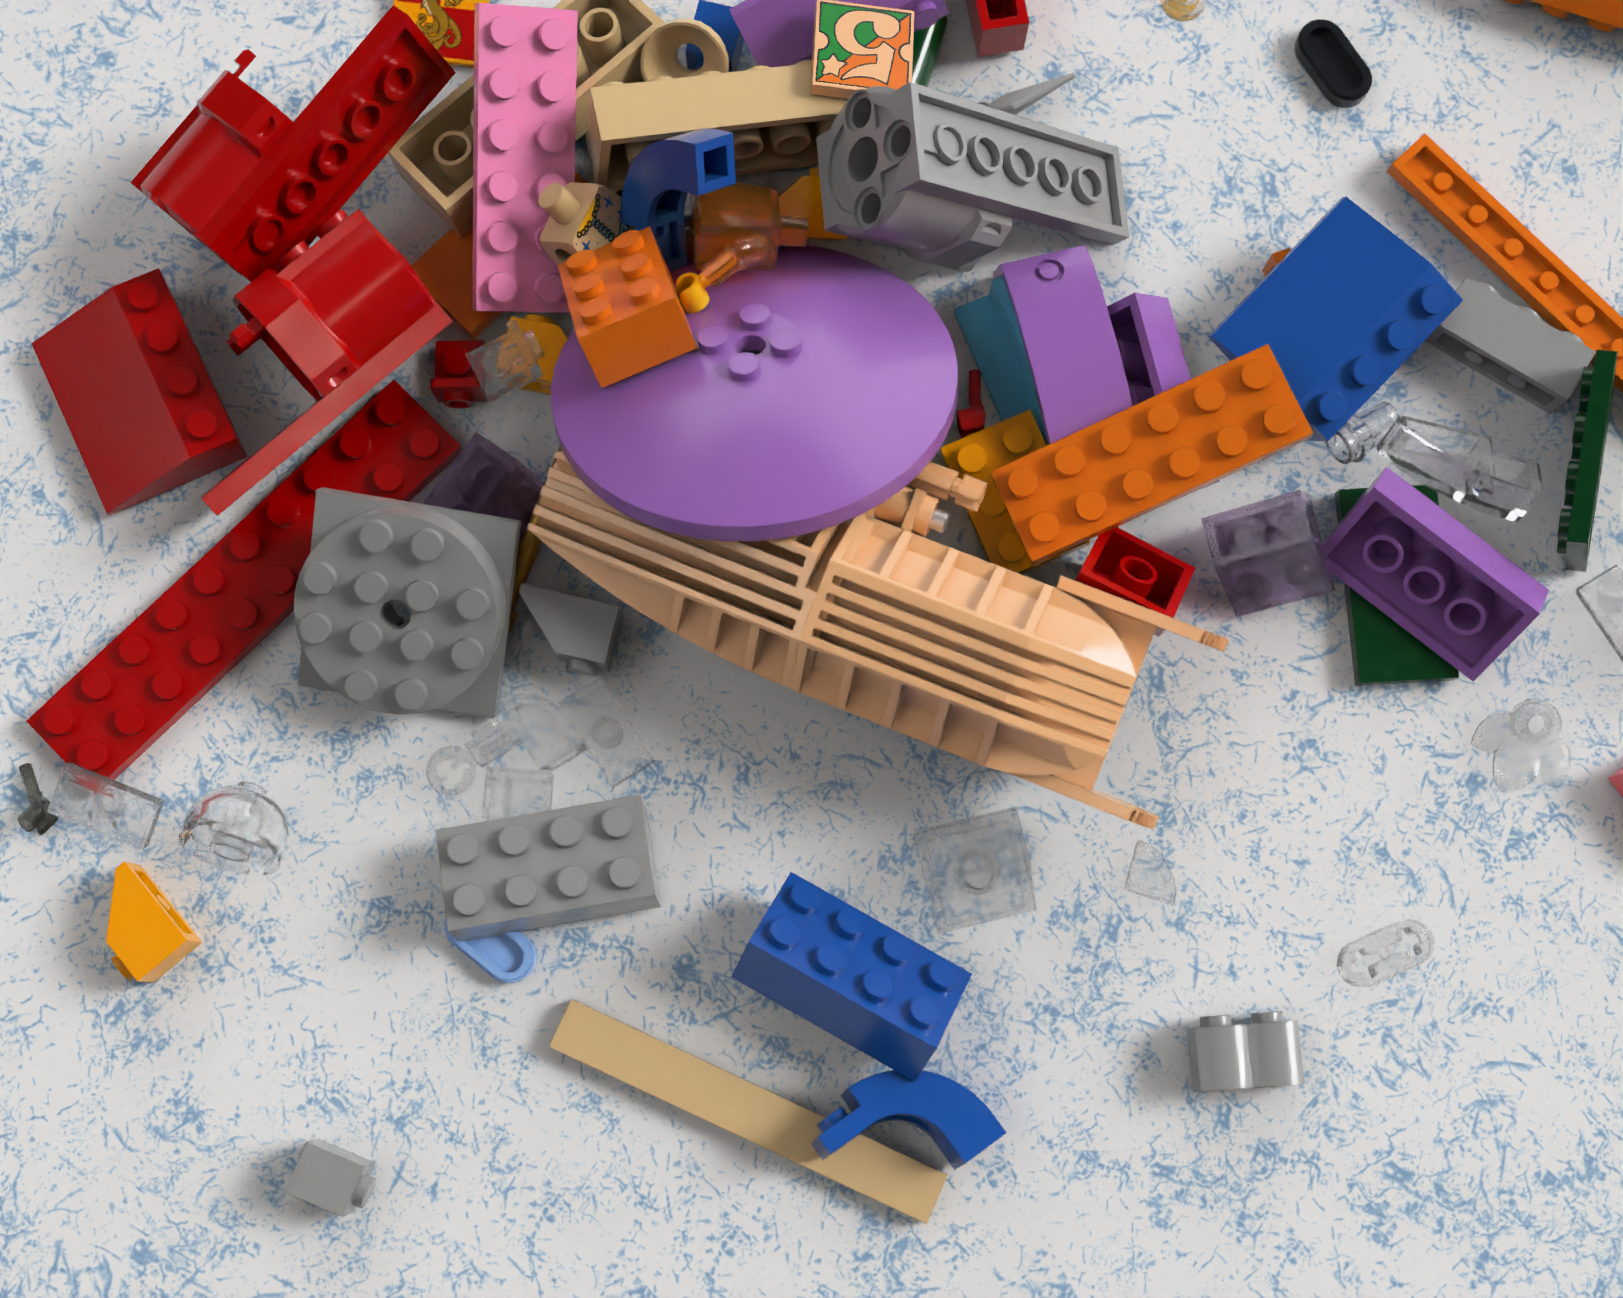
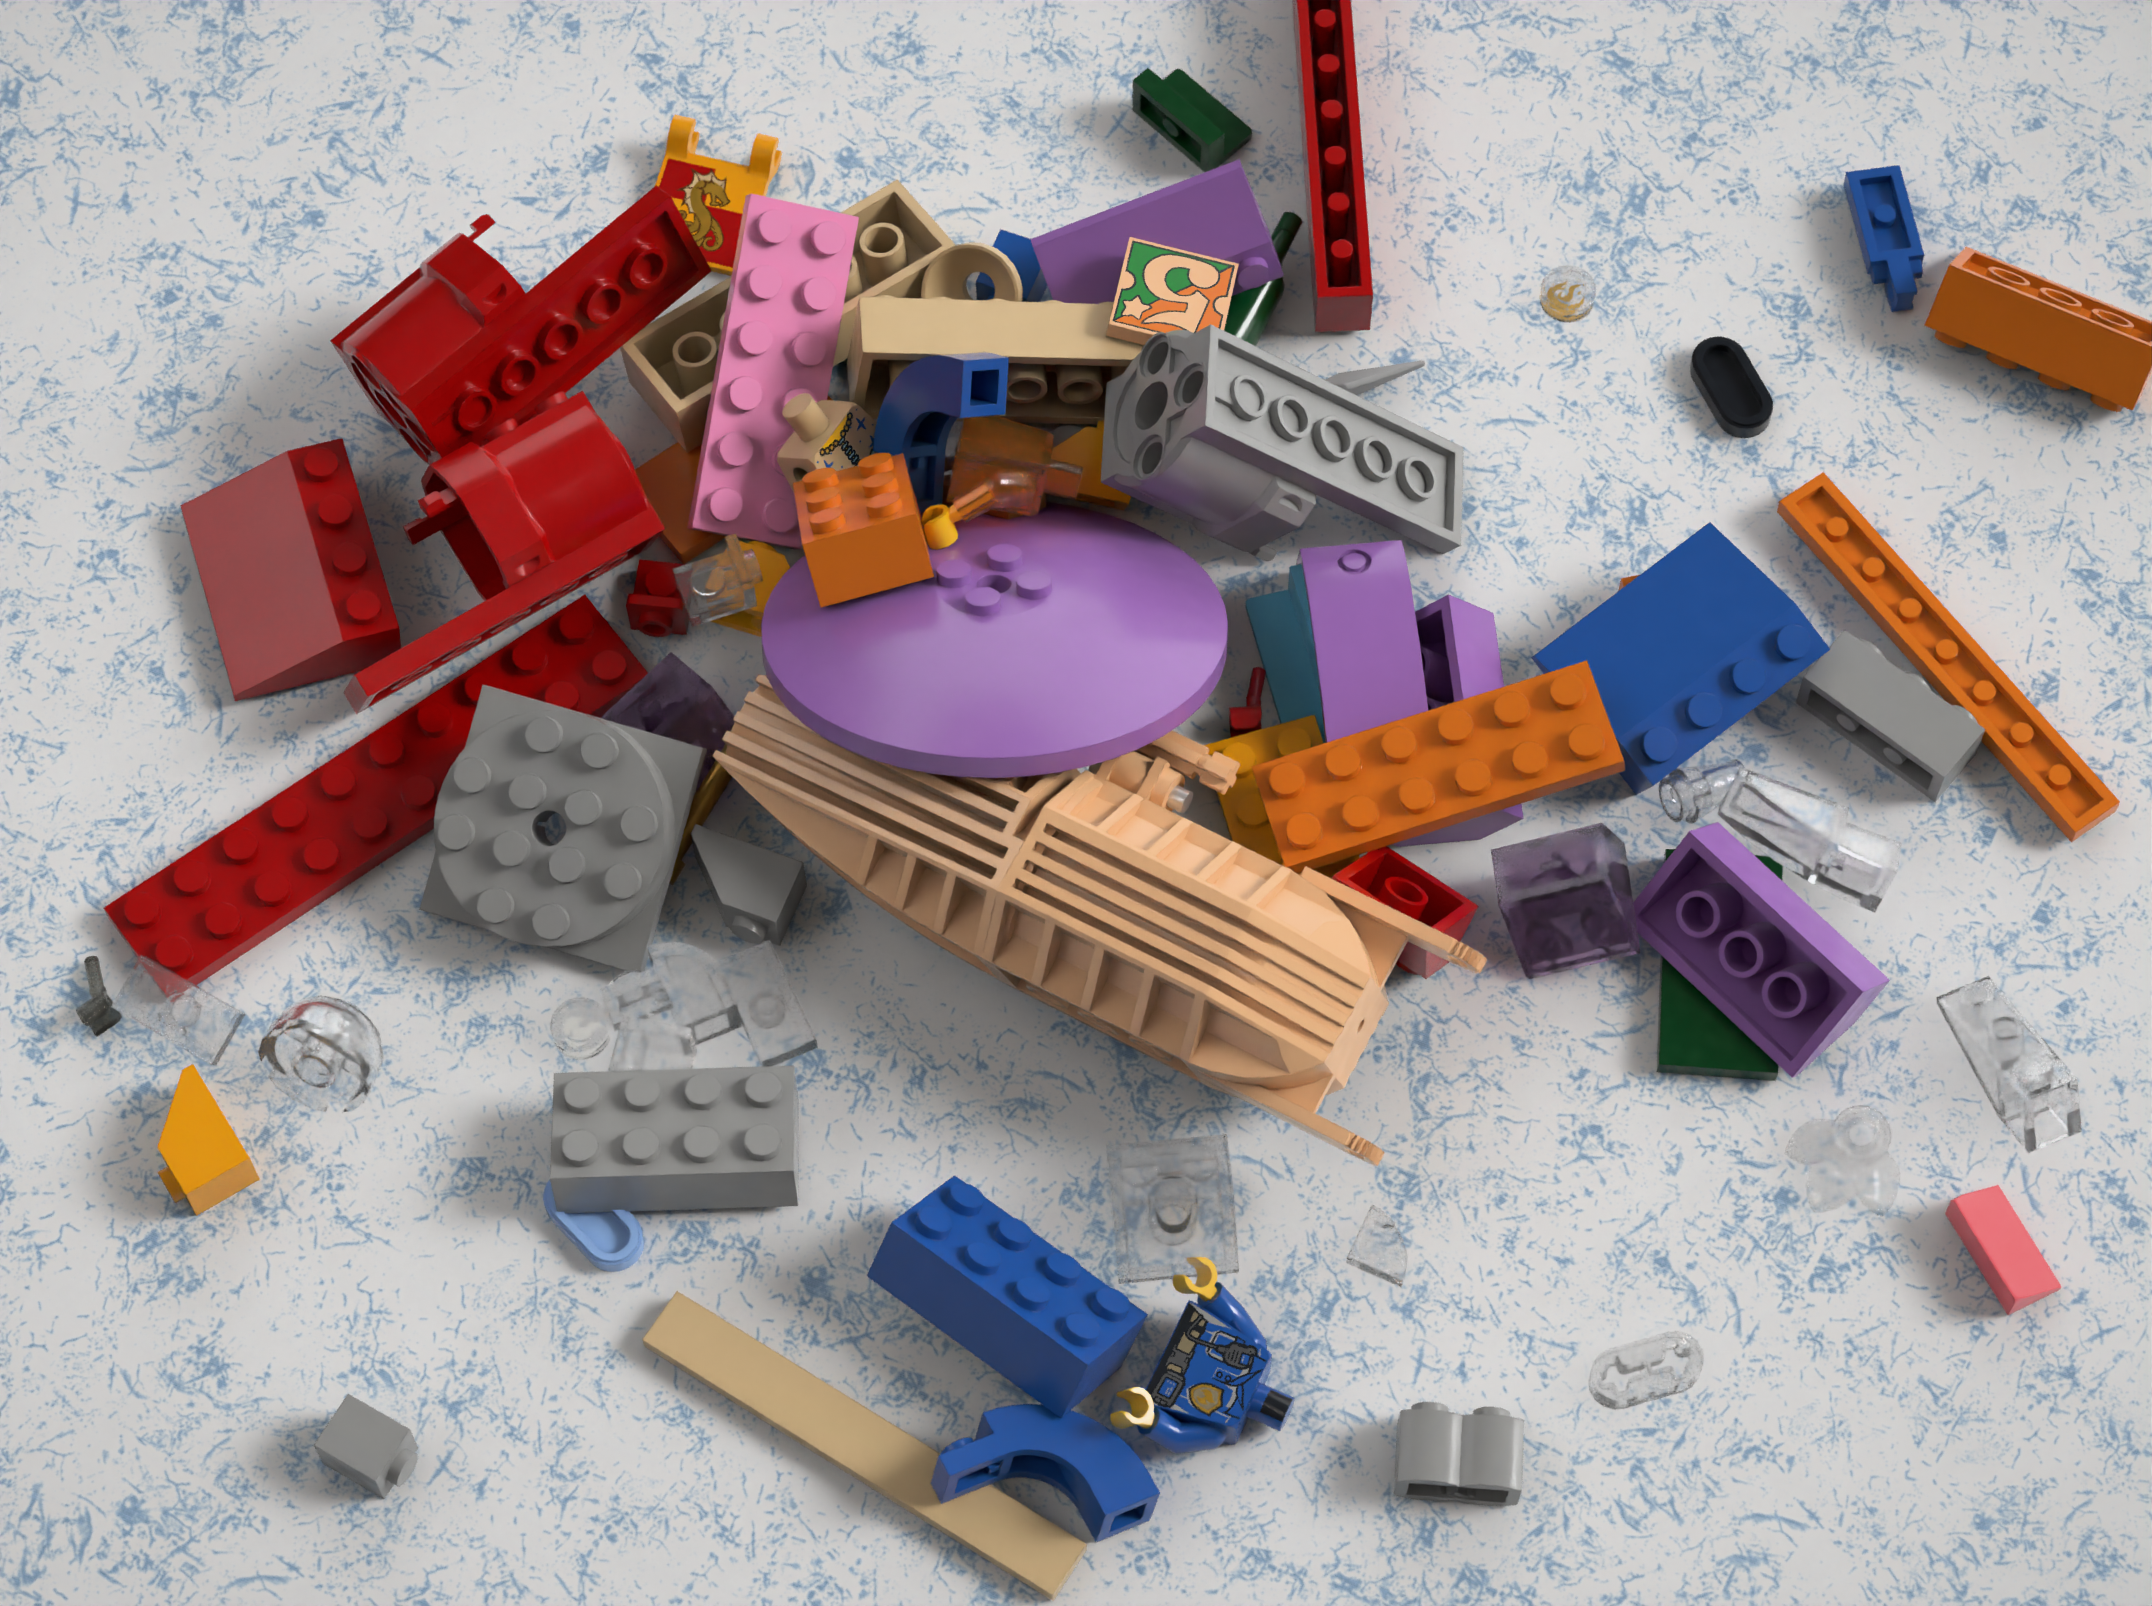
camera: 10 degrees right, 15 degrees down
(1027, 1016) = (1207, 1374): none -> torso
(1589, 448) = (1960, 849): dark green plate -> none

